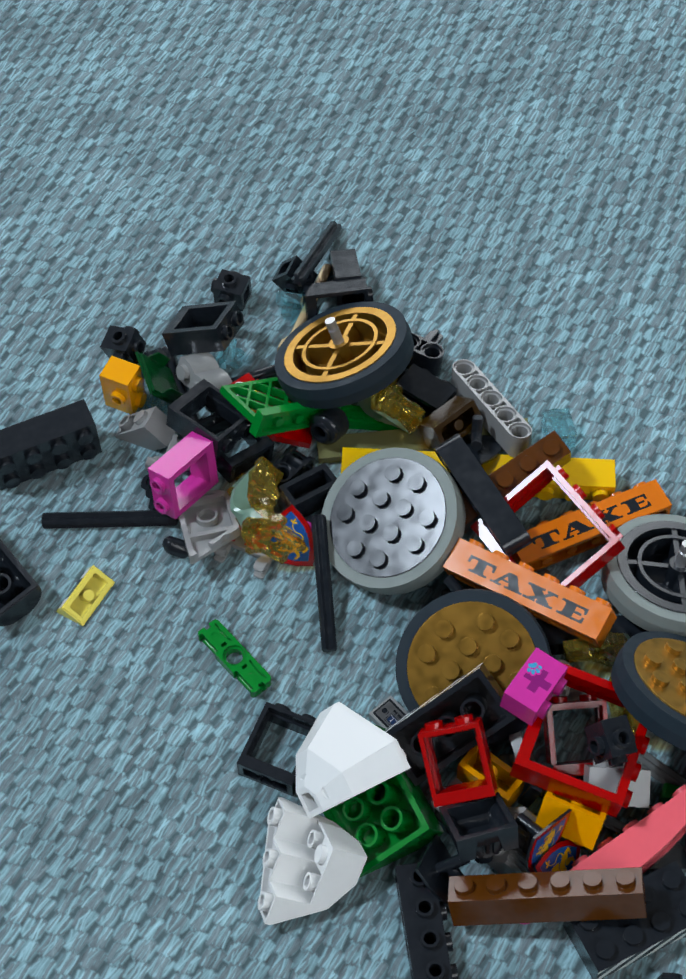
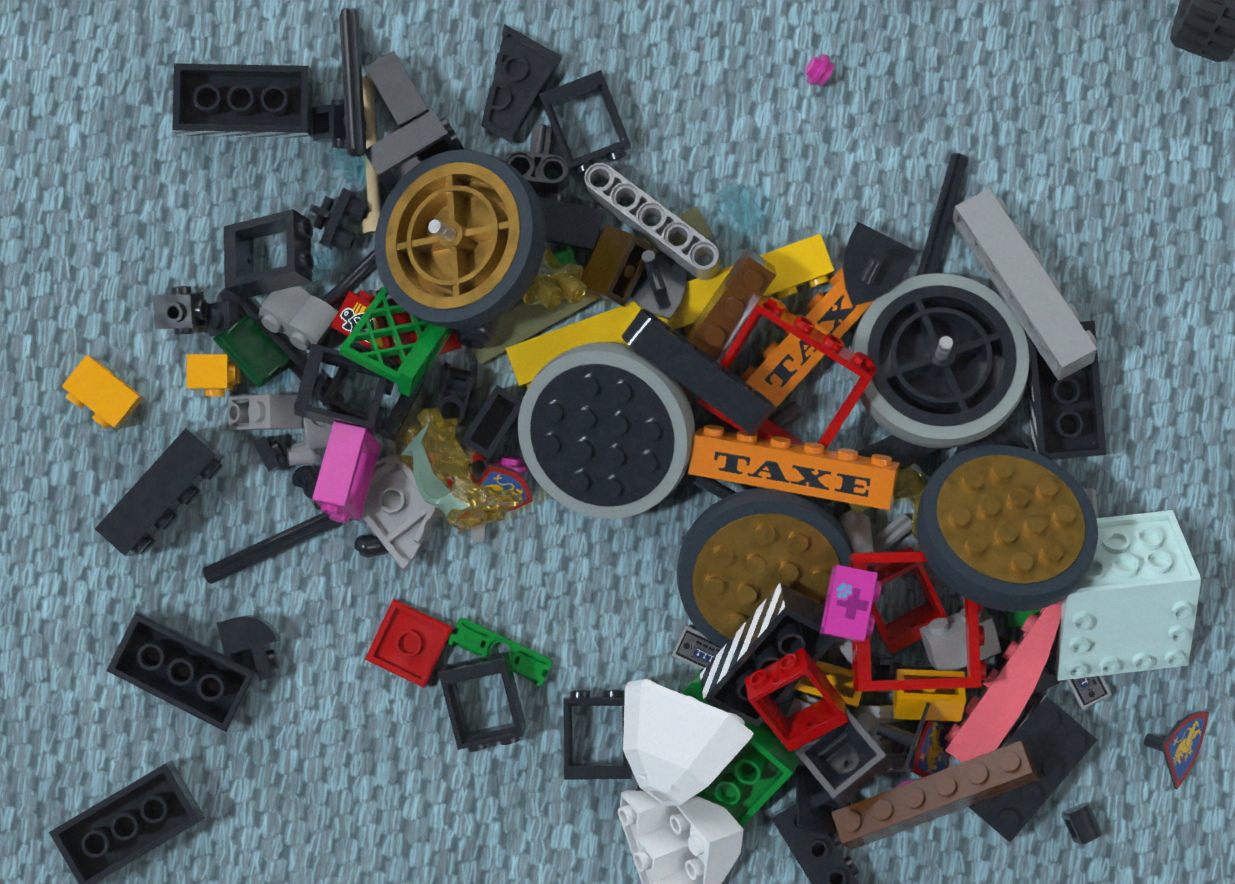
camera: 25 degrees left, 30 degrees up
(40, 376) = (101, 392): none -> light orange brick
(52, 569) = (253, 633): none -> black brick
(86, 596) = (301, 646): light yellow slope -> none
(135, 456) = (270, 453): none -> black plate
(167, 624) = (409, 643): none -> red tile
(205, 652) = (473, 669): none -> black window
(231, 287) = (280, 178): black brick -> none
(236, 242) = (242, 100): none -> black brick
(261, 332) = (345, 206): none -> black hips
(323, 583) = (559, 528): black axle -> none
(434, 300) = (519, 78): none -> black wing
(480, 318) = (574, 90): none -> black window
(611, 740) = (949, 632): black brick -> none
(648, 493) = (873, 264): none -> black shield
(654, 367) = (819, 70): none -> dark pink plate

